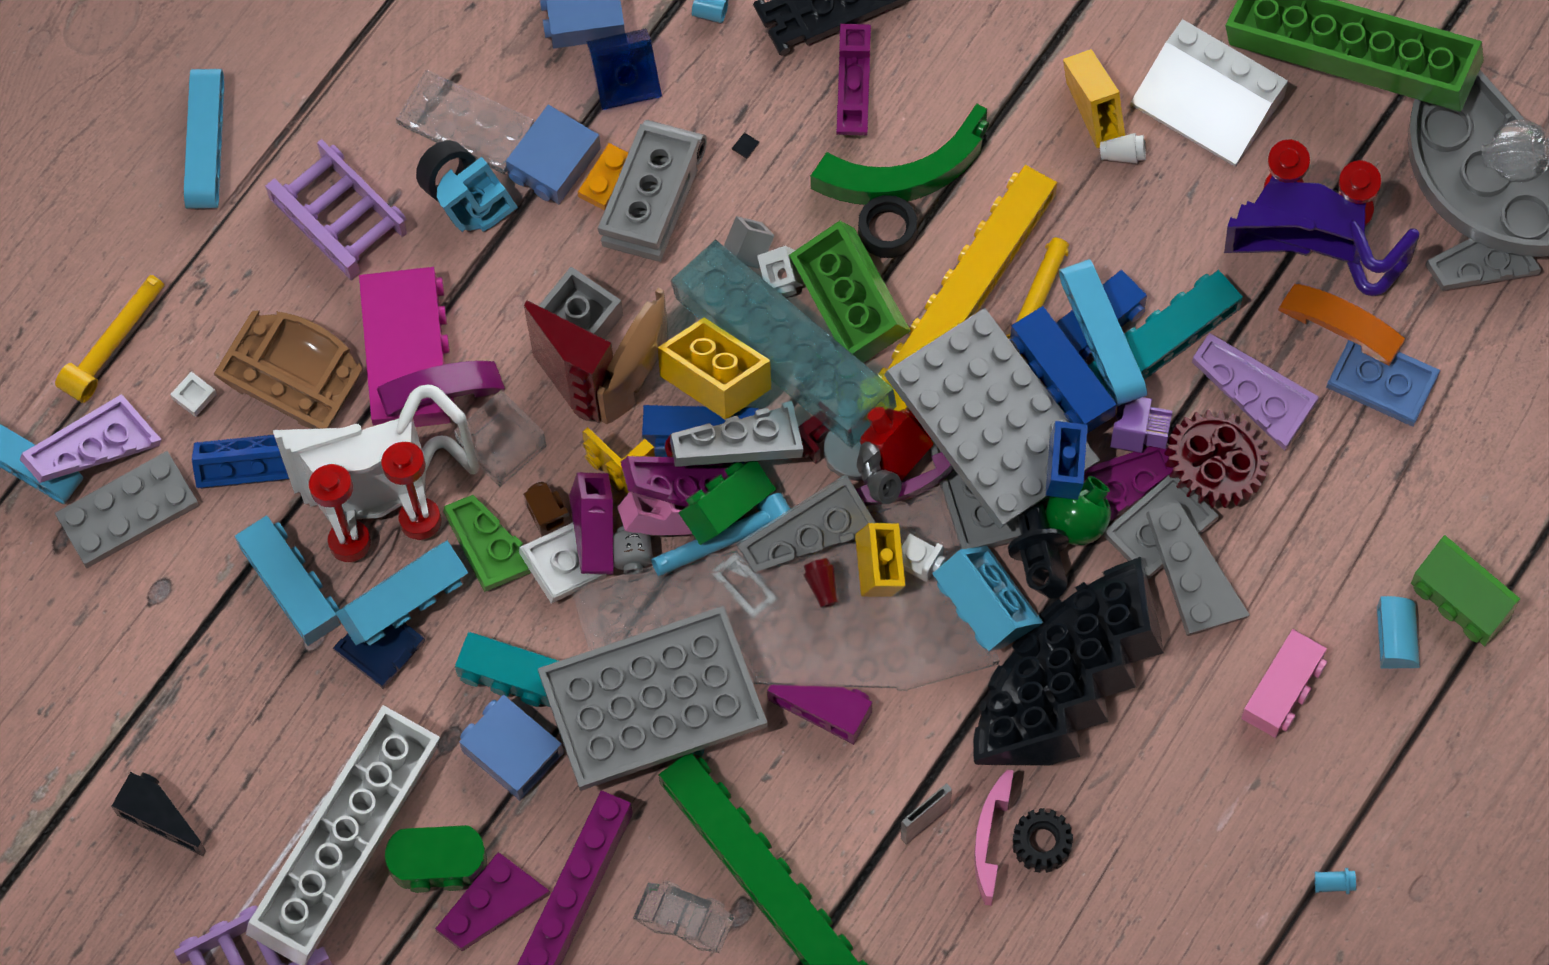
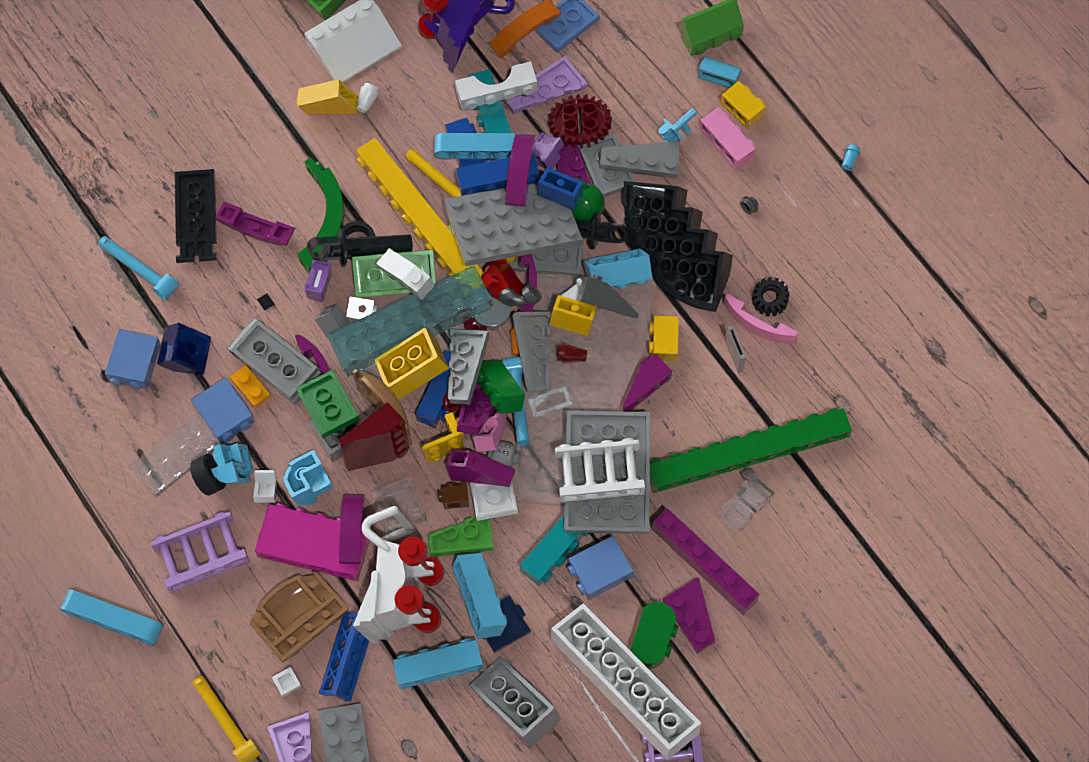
camera: 70 degrees left, 0 degrees up
(268, 705) = (515, 702): none -> light grey slope
(461, 254) = (265, 486): none -> white bracket
(490, 301) = (306, 479): none -> medium azure brick
(602, 278) = (327, 404): none -> green plate
(623, 707) = (591, 489): none -> white fence
(638, 281) = (309, 350): none -> magenta slope
(794, 195) = (318, 280): none -> medium lavender piece
(837, 301) = (406, 273): none -> white slope
(852, 203) = (340, 246): none -> black piece
(908, 709) = (664, 337): none -> yellow brick
(923, 586) = (604, 296): none -> dark grey slope
(1077, 389) = (519, 169): none -> magenta slope
(1186, 757) = (749, 205): none -> dark grey plate
(1235, 343) = (475, 93): none -> white arch
(1257, 596) = (670, 132): none -> medium azure arm
(1353, 687) = (743, 104): none -> yellow brick

